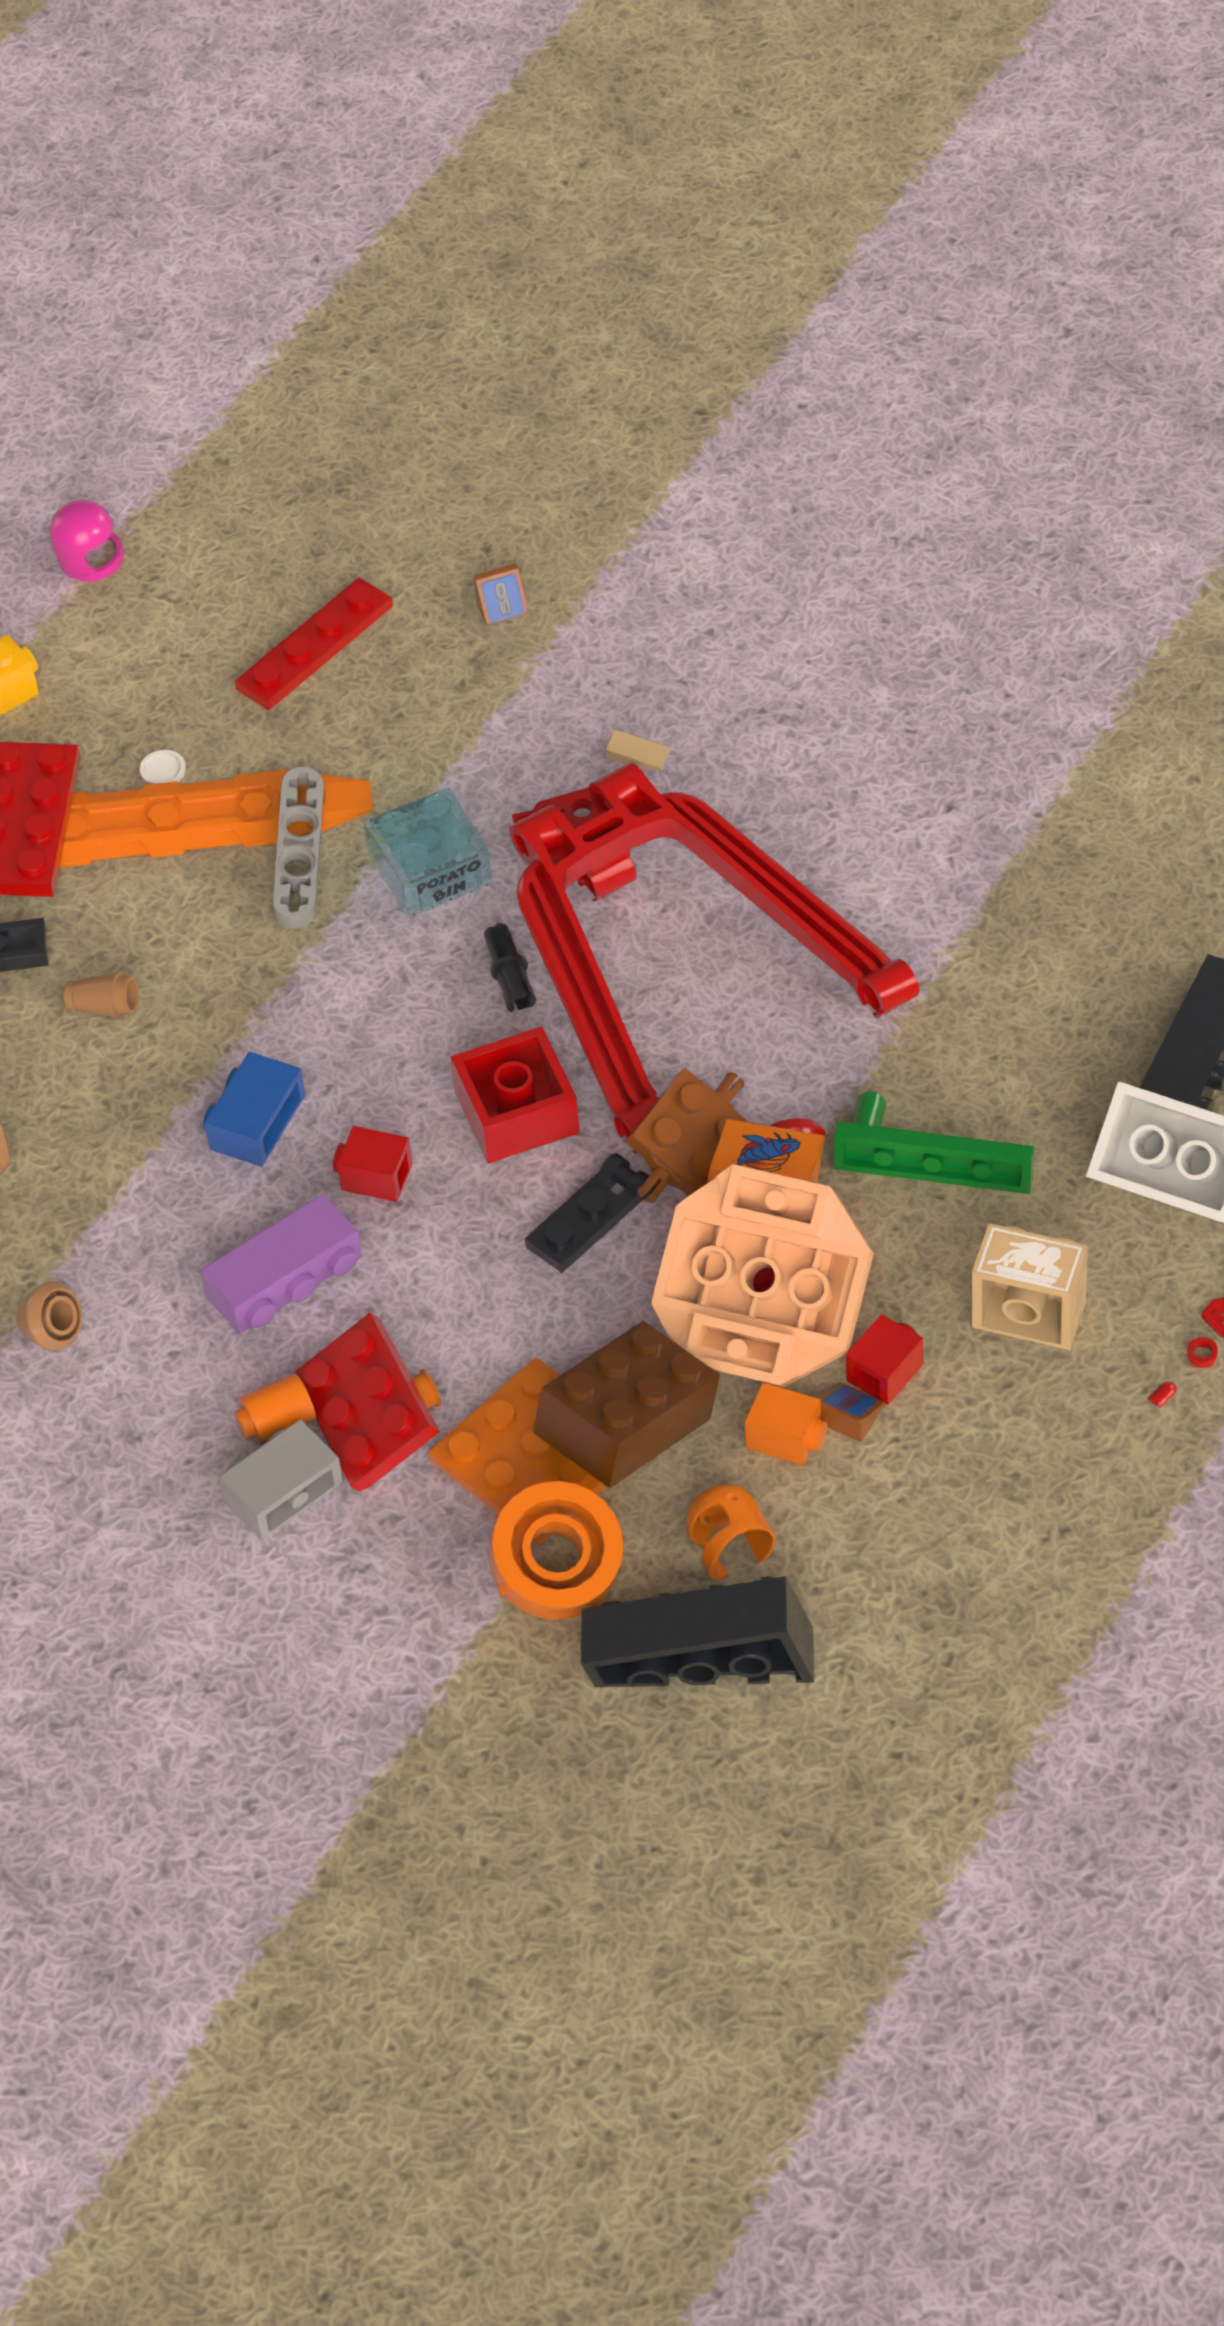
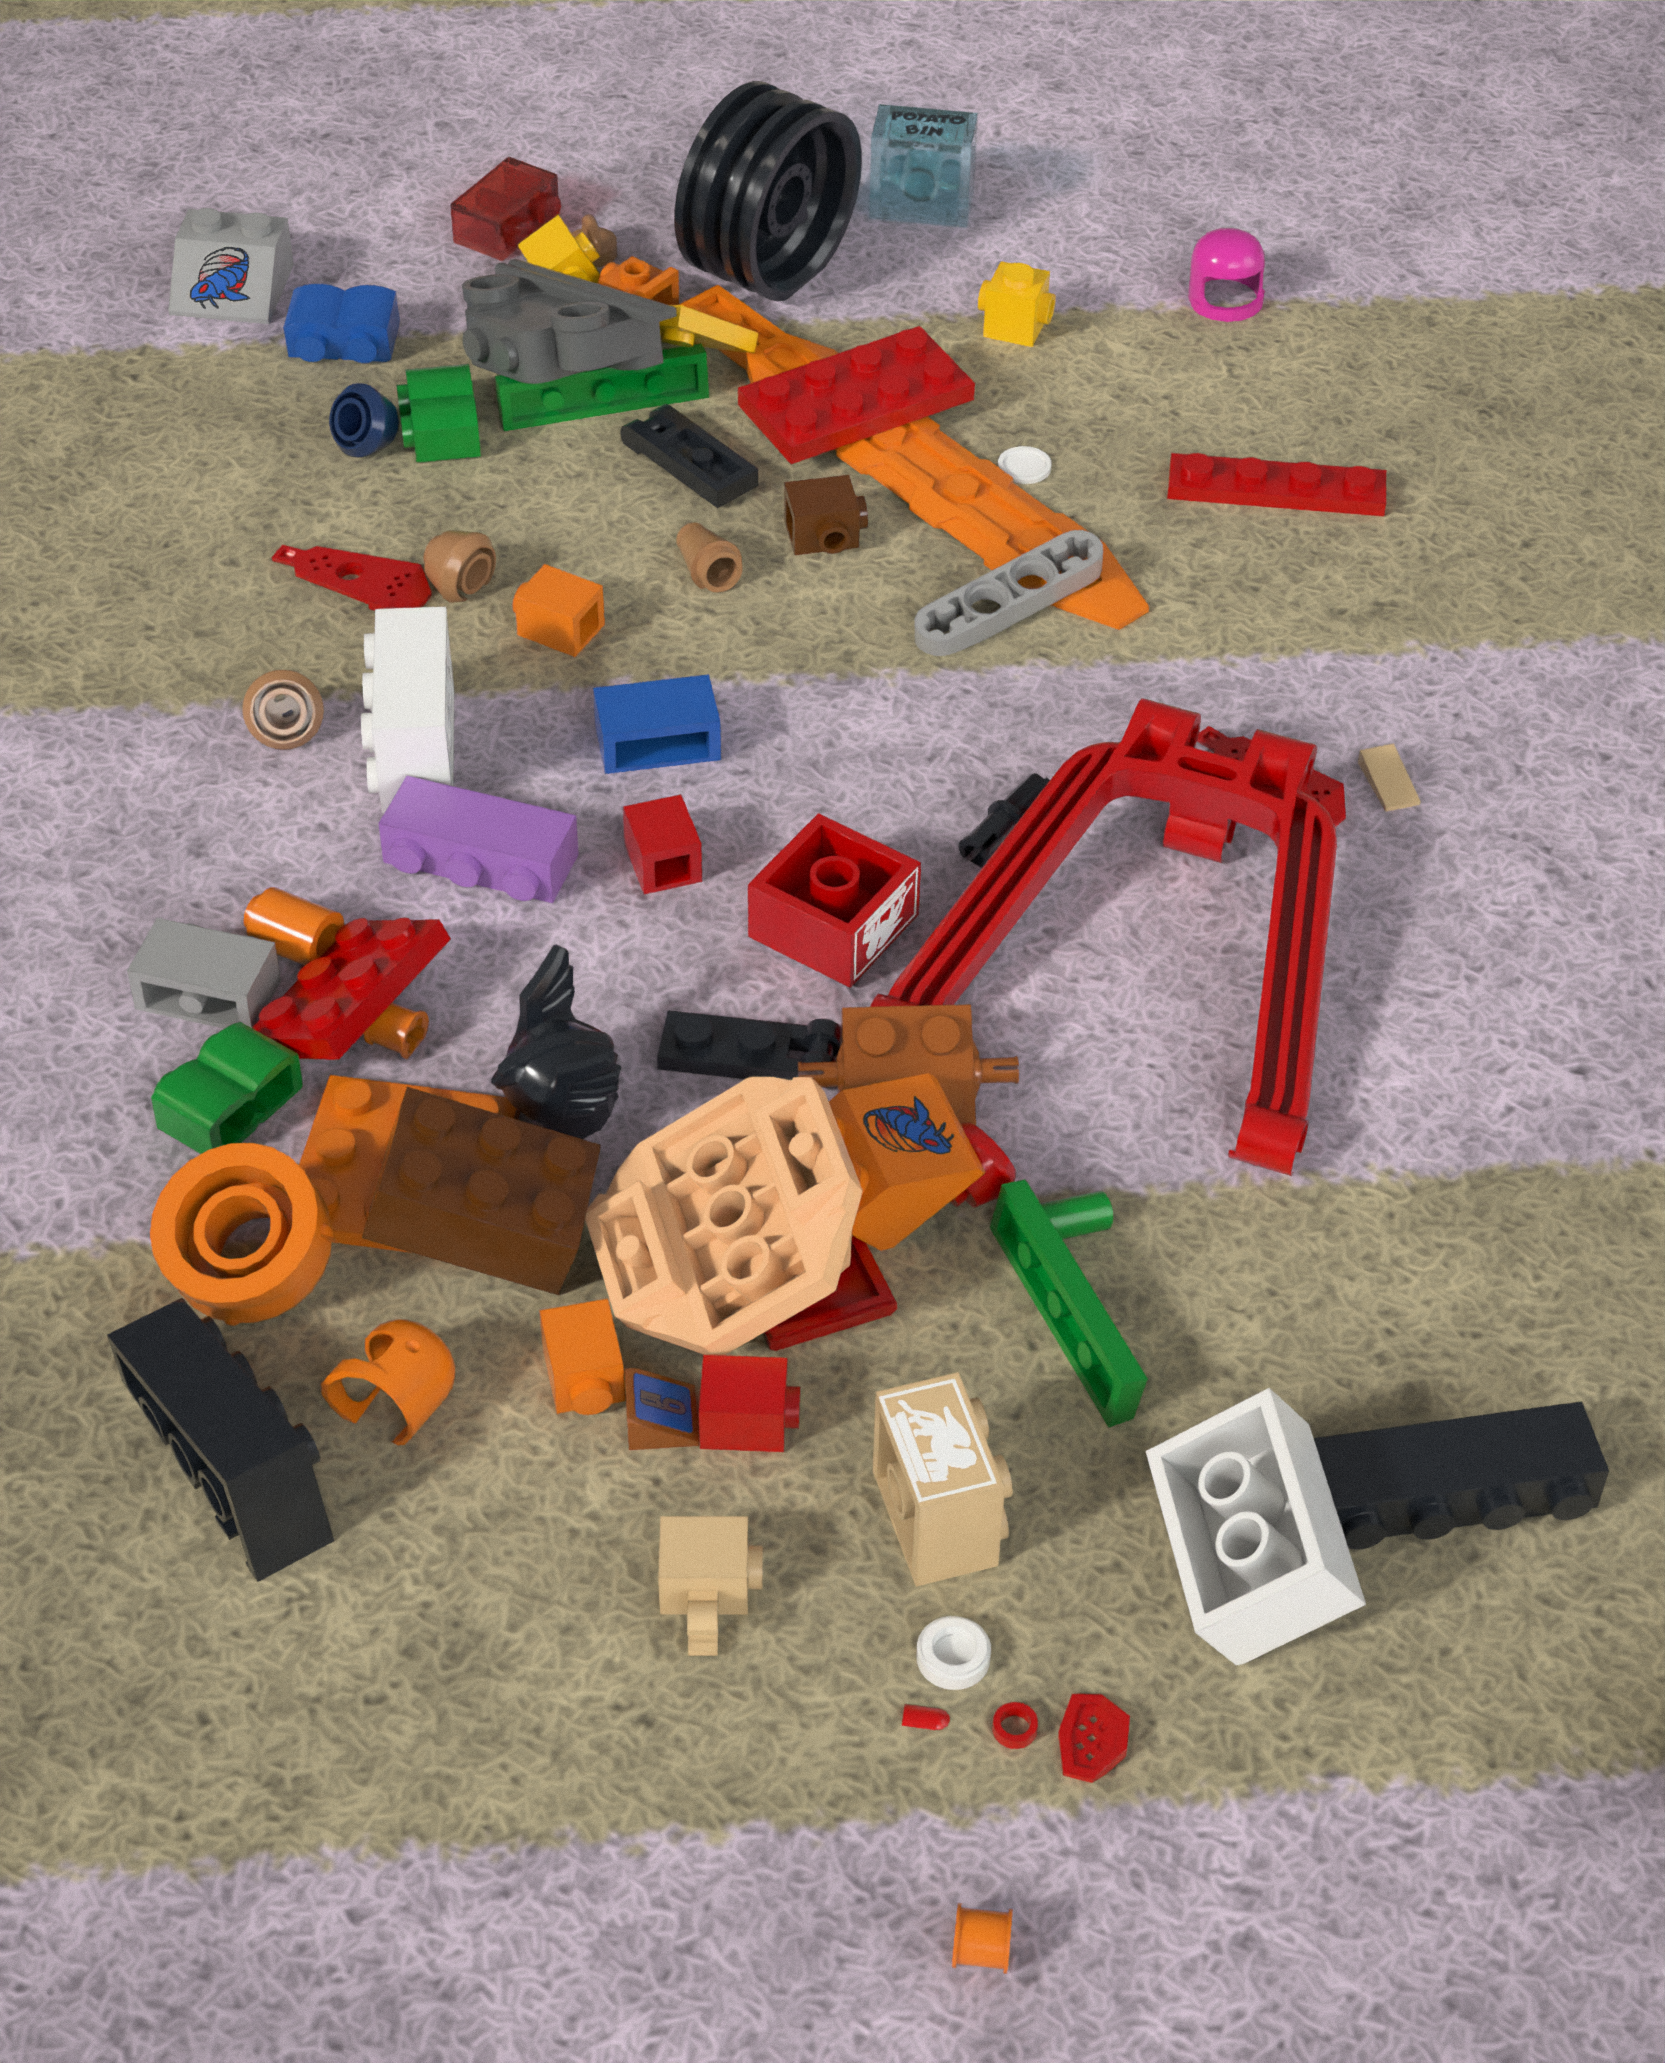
camera: 50 degrees right, 5 degrees down
(87, 1108) = (559, 610): none -> orange brick
(125, 907) = (823, 515): none -> reddish brown brick
(135, 1234) = (408, 700): none -> white brick
(398, 1514) = (227, 1089): none -> green brick
(428, 852) = (1086, 679): clear light blue brick -> none
(500, 594) = (1472, 573): slope -> none
(548, 1311) = (556, 1064): none -> black helmet
(994, 1440) = (706, 1573): none -> tan brick
(1132, 1354) = (953, 1652): none -> white tile

